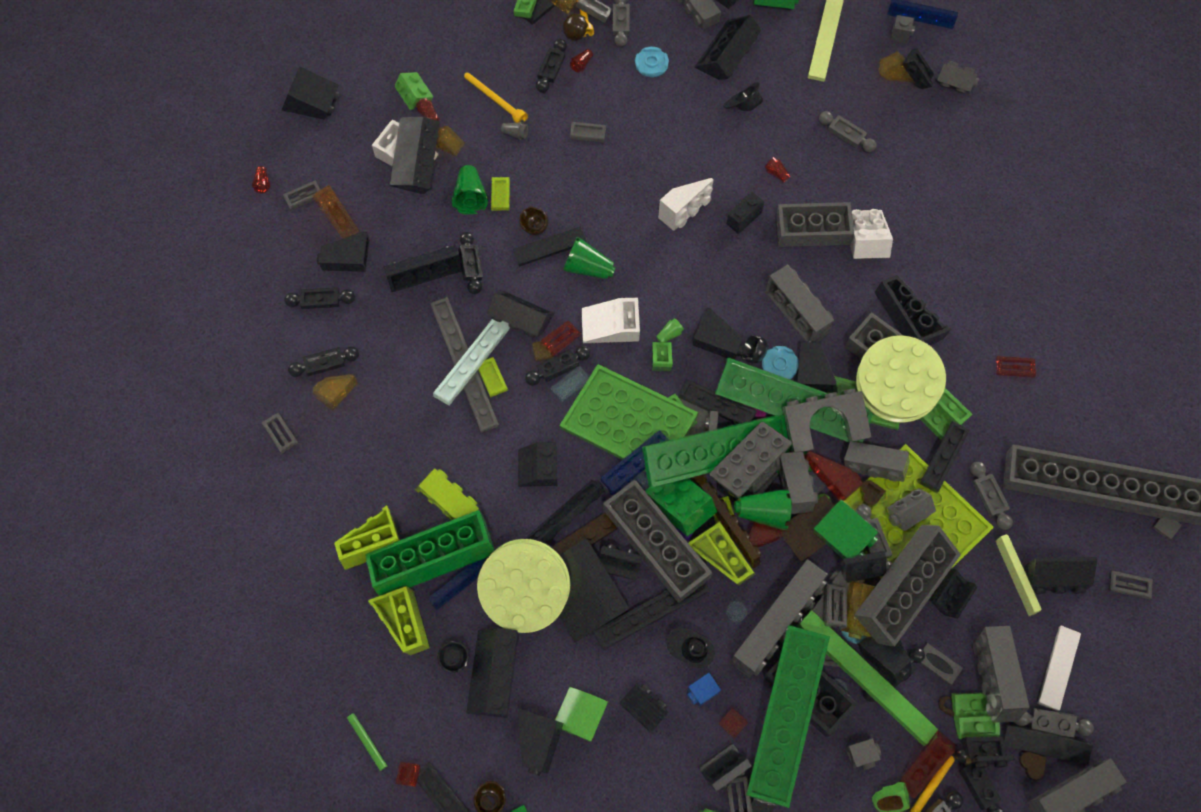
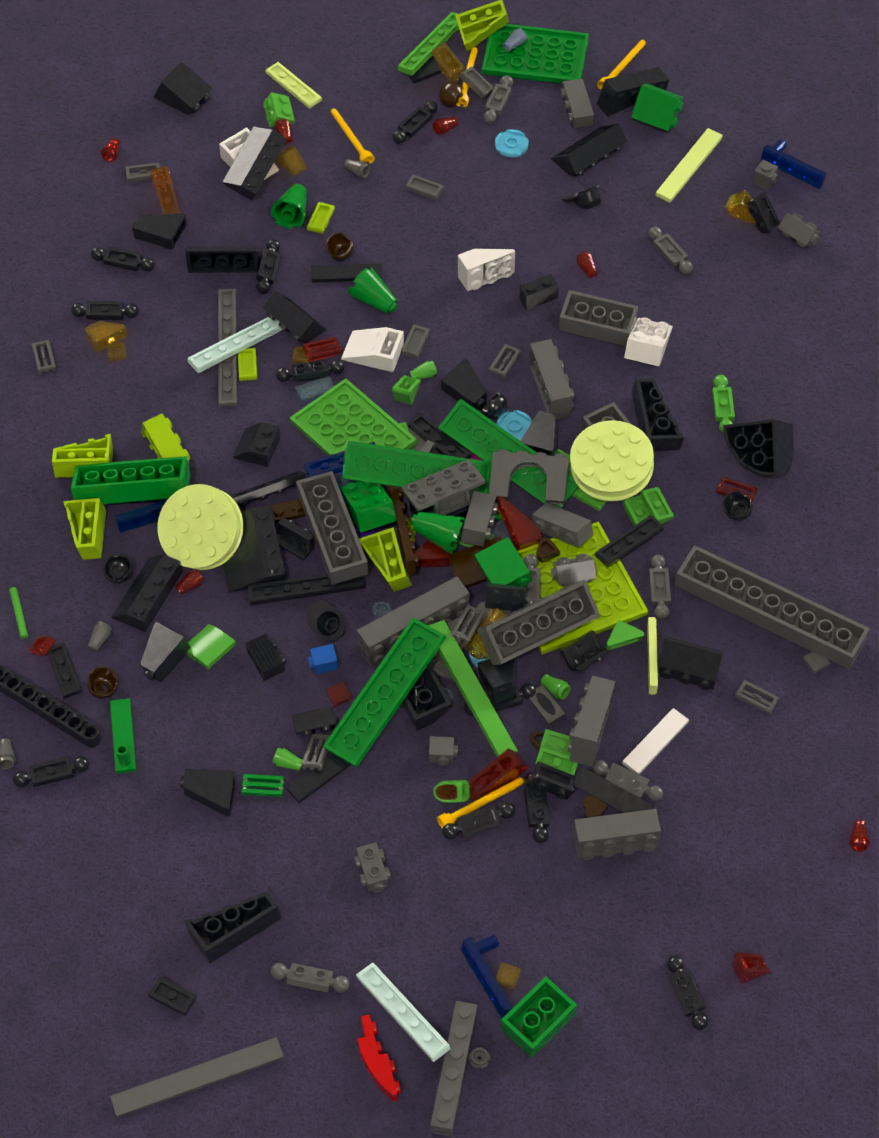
camera: 20 degrees right, 10 degrees down
(353, 404) = (117, 351): none -> clear yellow tile
(416, 58) = (293, 85): none -> yellowish green tile
(463, 741) = (99, 635): none -> dark grey cone
(532, 645) = (190, 581): none -> clear red cone
(647, 300) = (415, 341): none -> dark grey tile
(739, 309) = (503, 374): none -> dark grey tile
(940, 640) = (556, 687): none -> bright green cone
(965, 279) = (723, 401): none -> bright green plate
(980, 563) = (623, 635): none -> bright green slope
(1024, 316) = (762, 445): none -> black brick
(1032, 383) = (737, 501): none -> black hair

